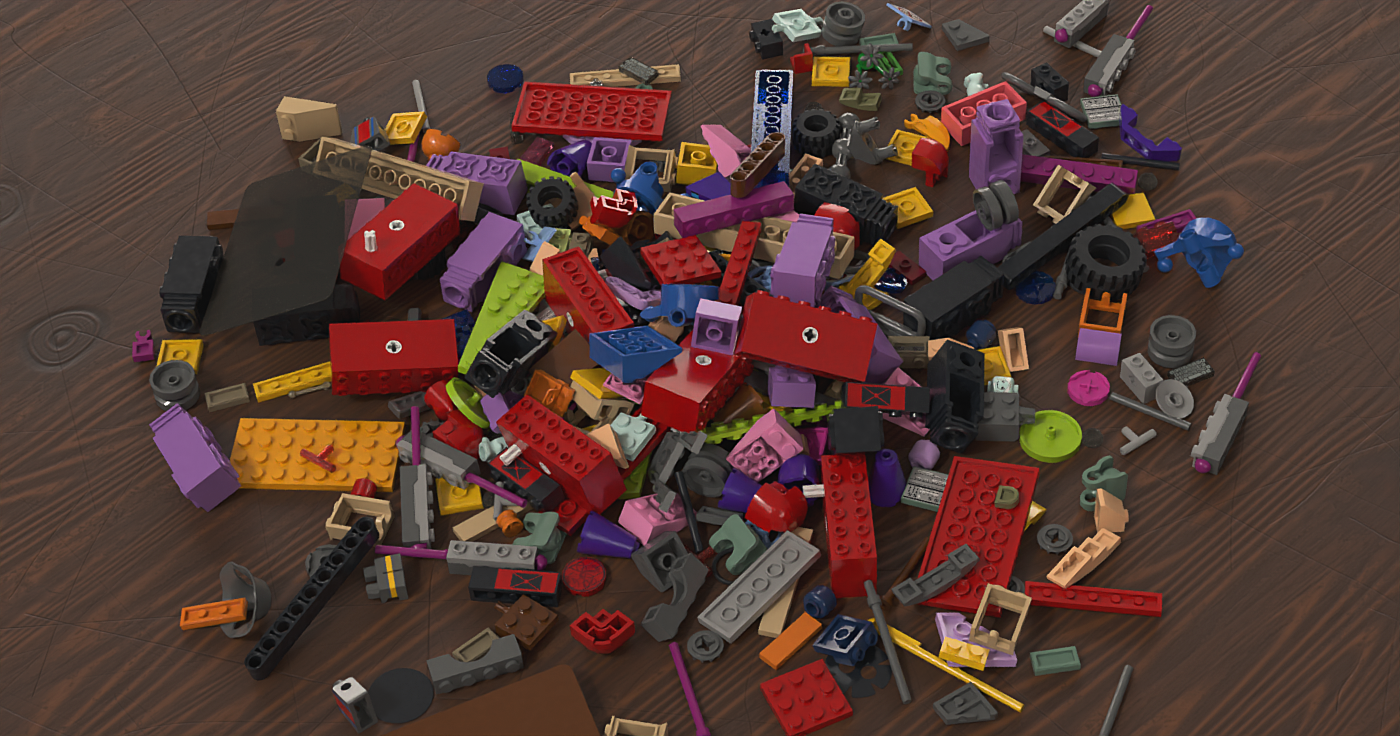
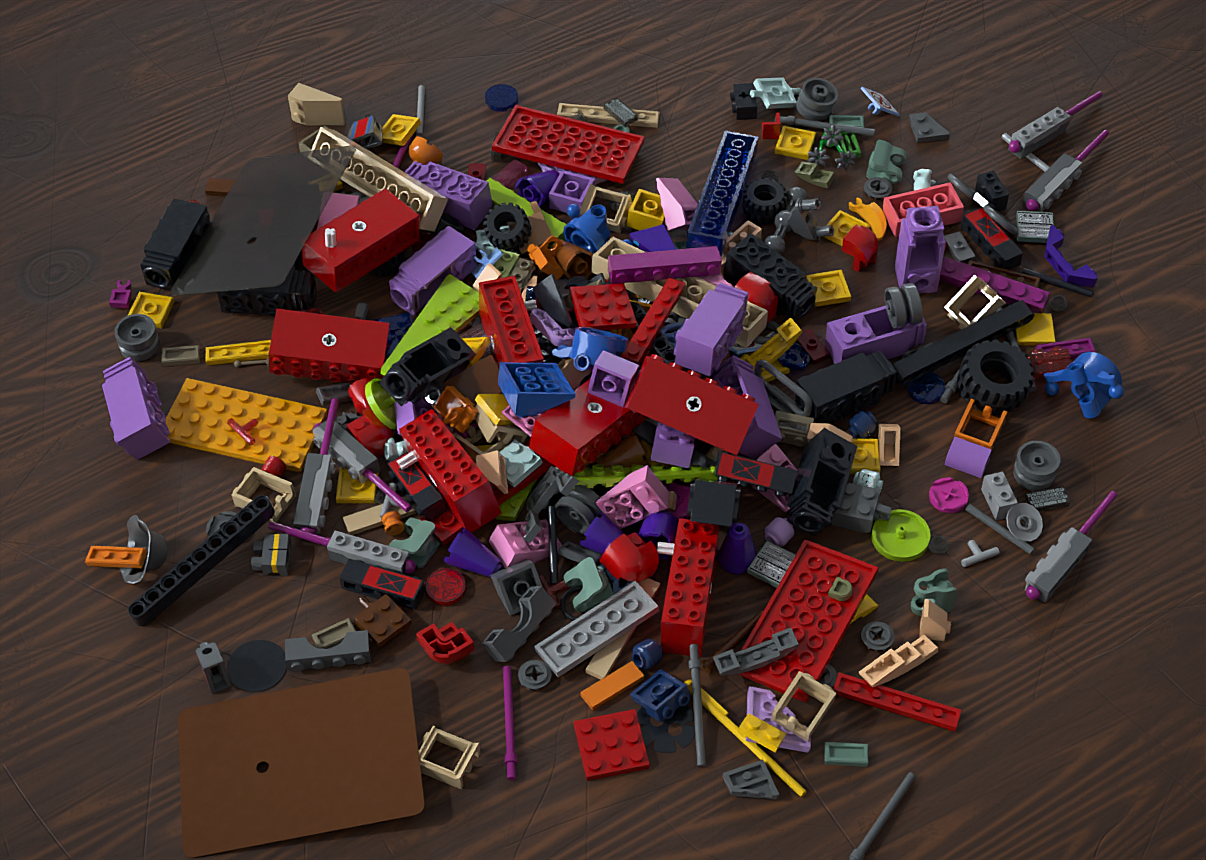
camera: 10 degrees right, 5 degrees up
(613, 211) = (558, 247): red brick -> none
(757, 165) = (695, 227): reddish brown beam -> none

